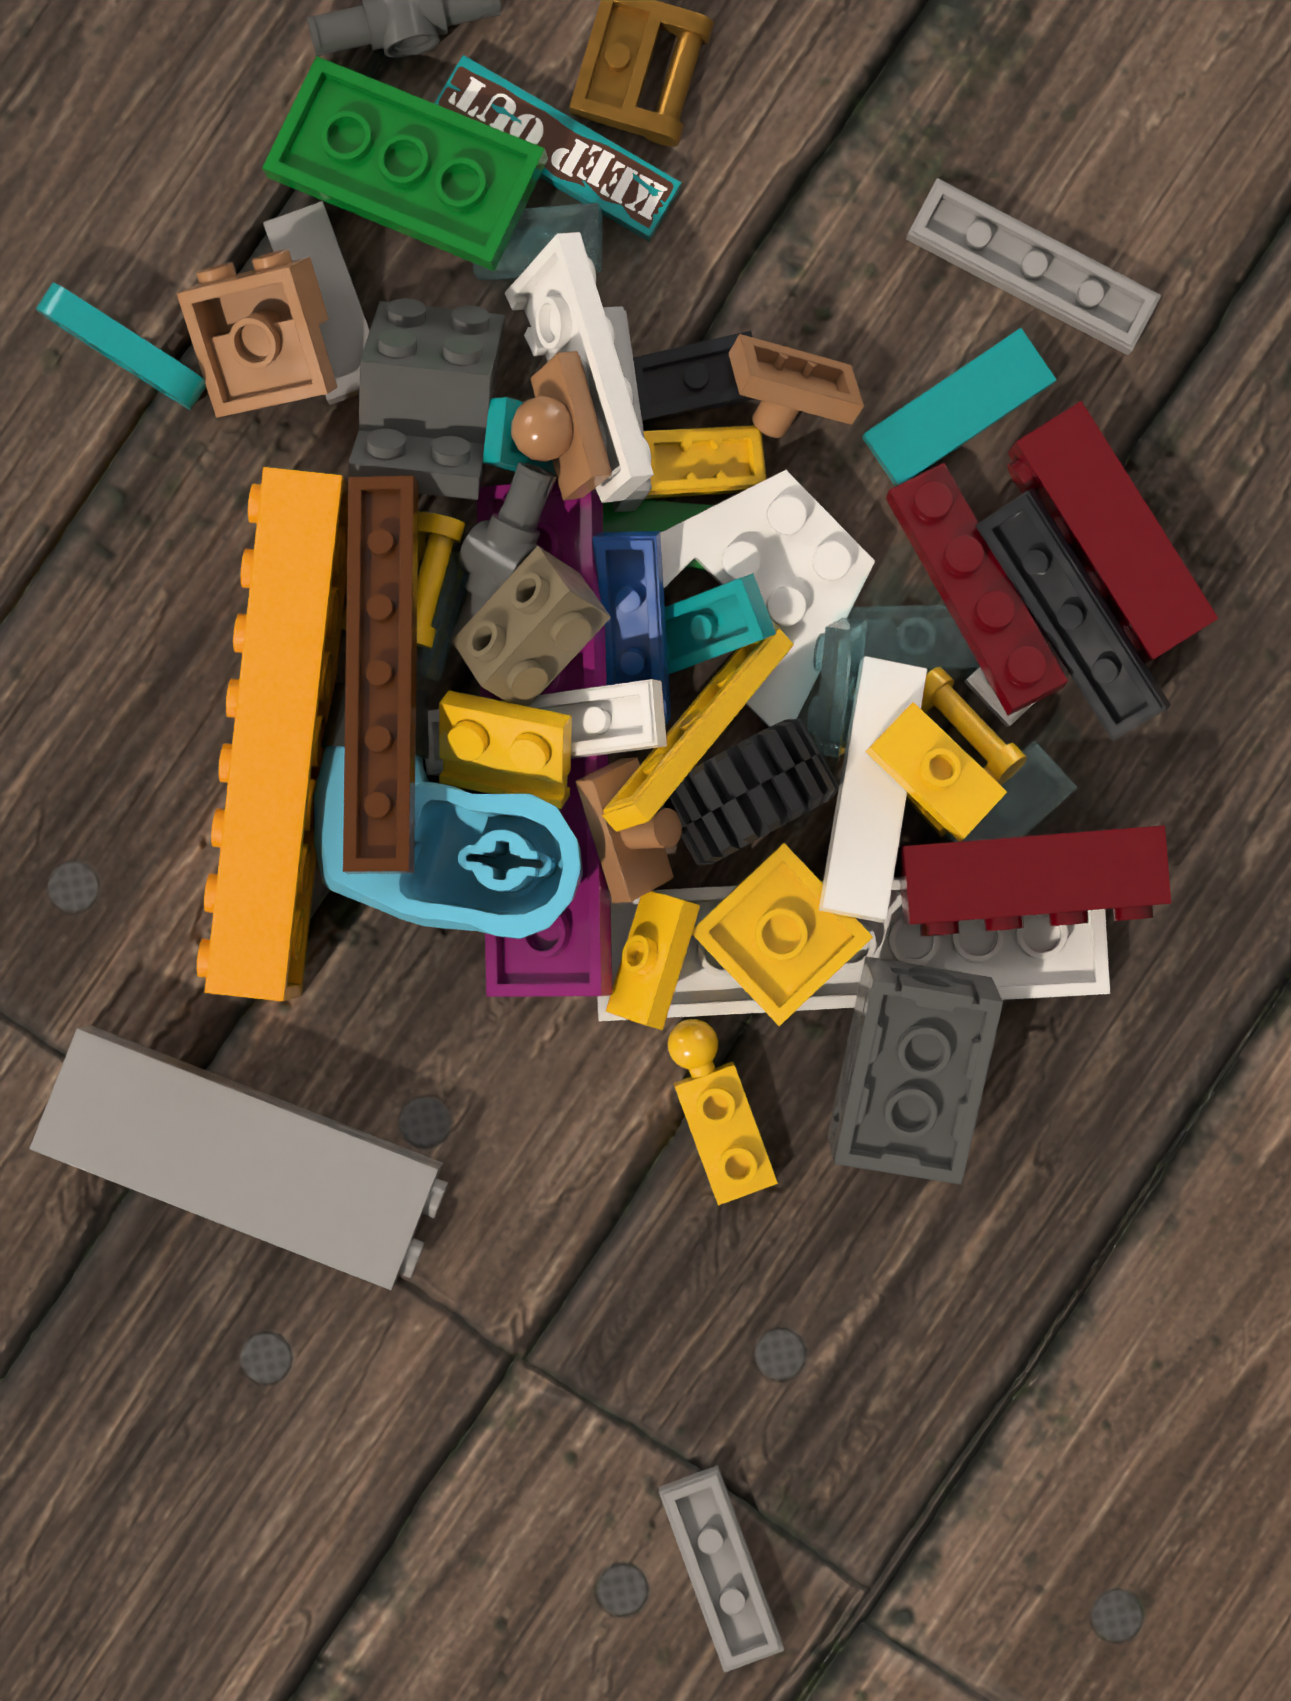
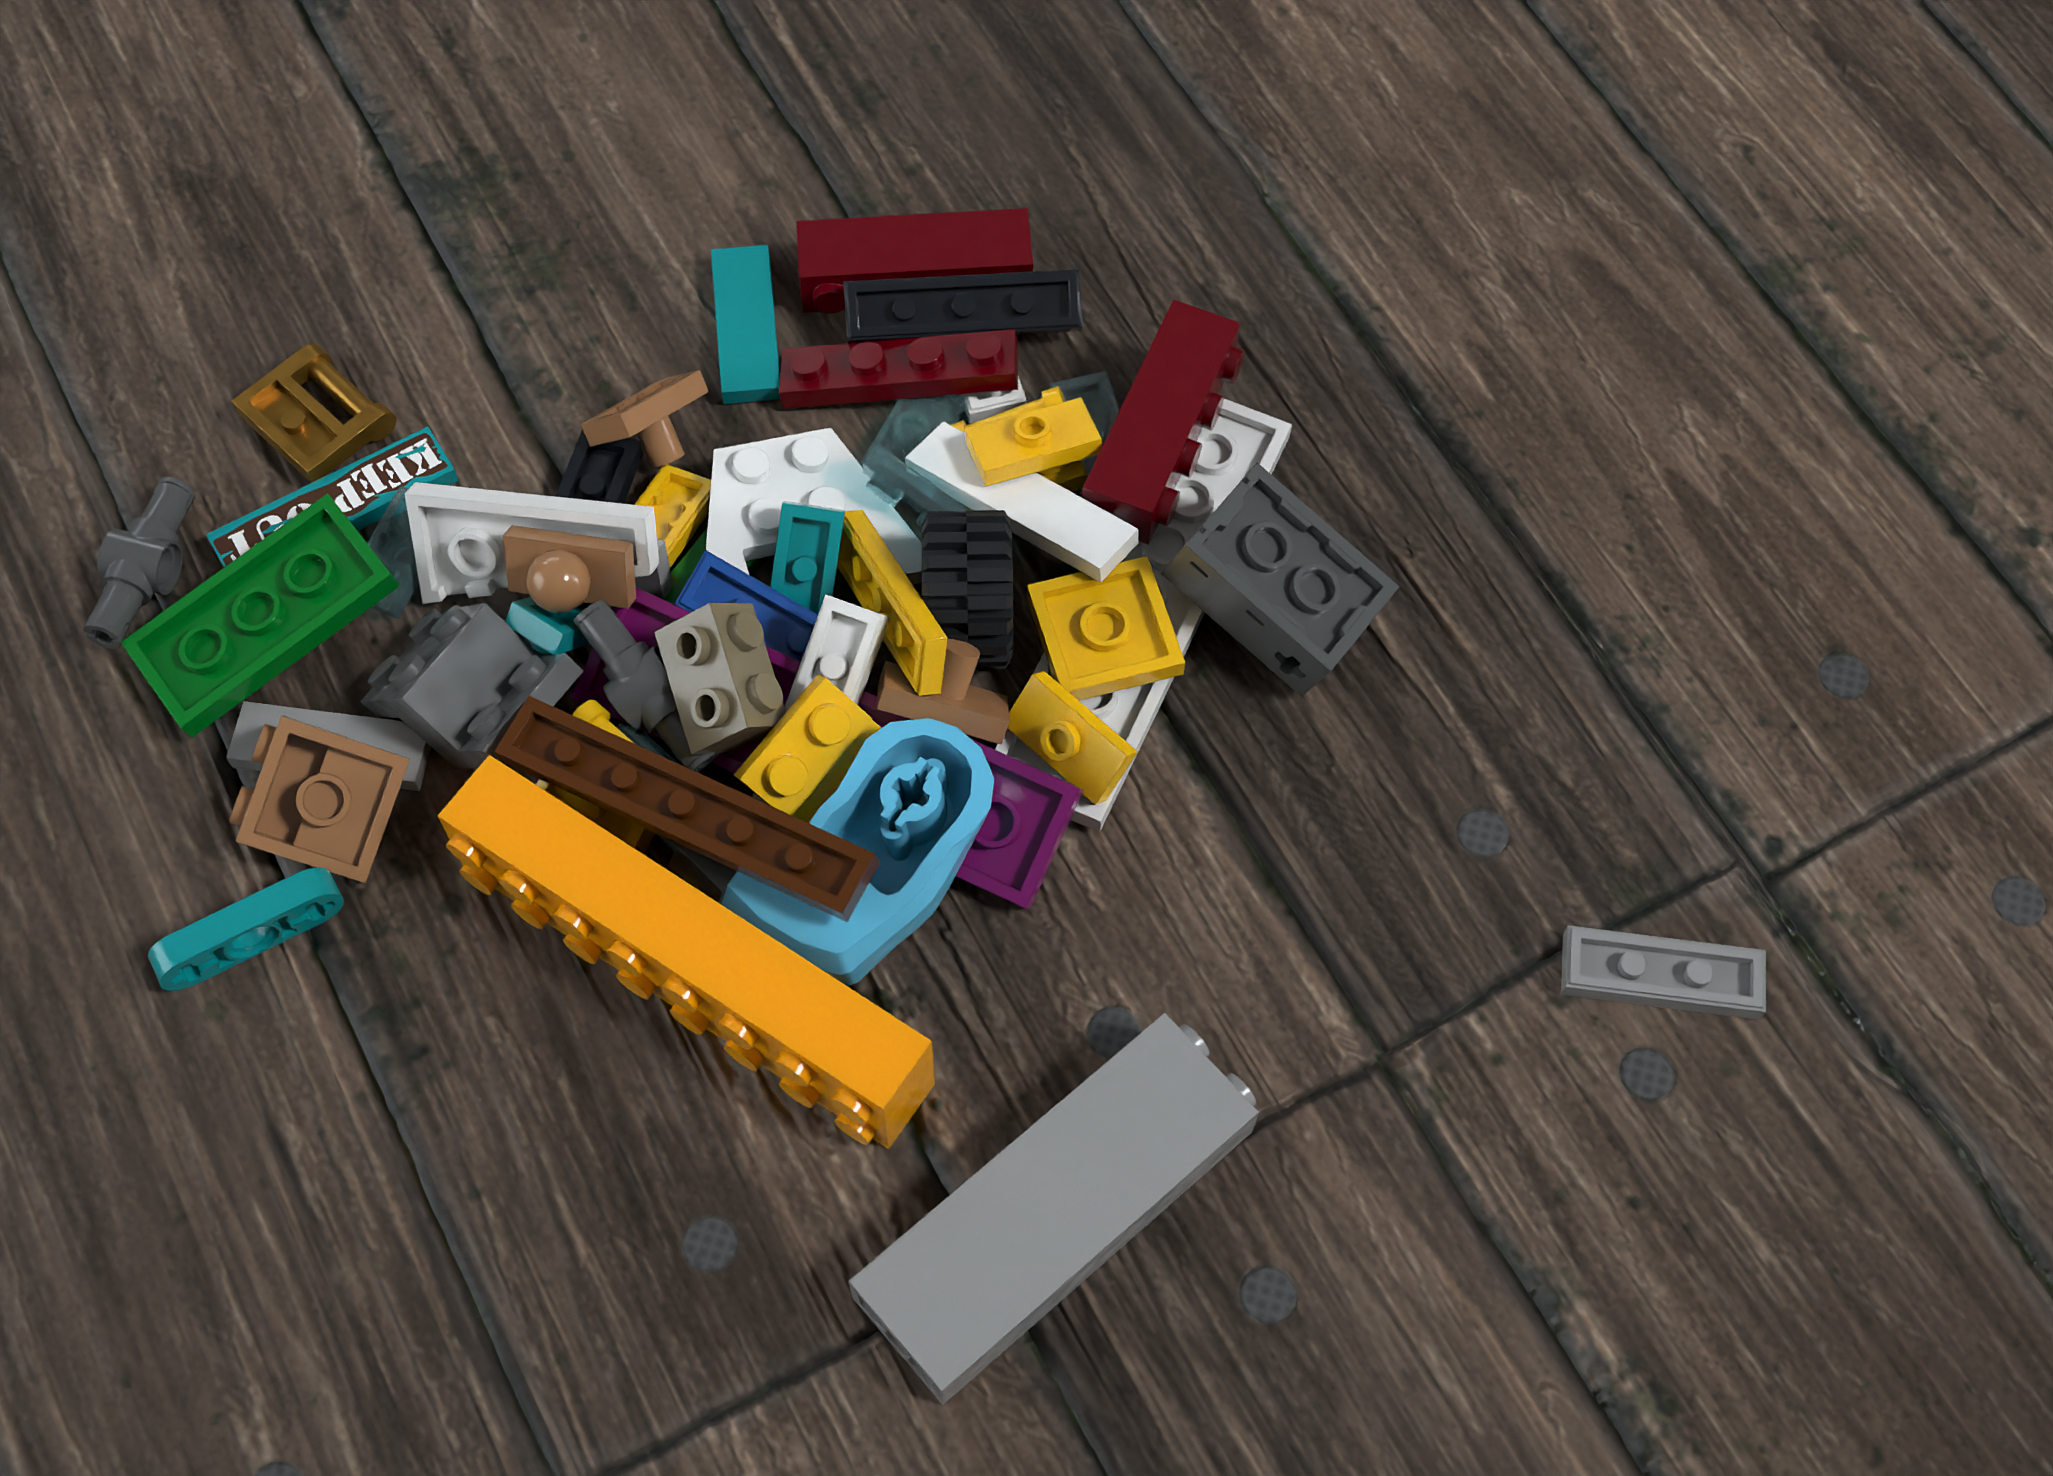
camera: 60 degrees left, 25 degrees down
(718, 1115) = (1239, 772): yellow plate -> none
(1033, 267) = (667, 226): light grey tile -> none

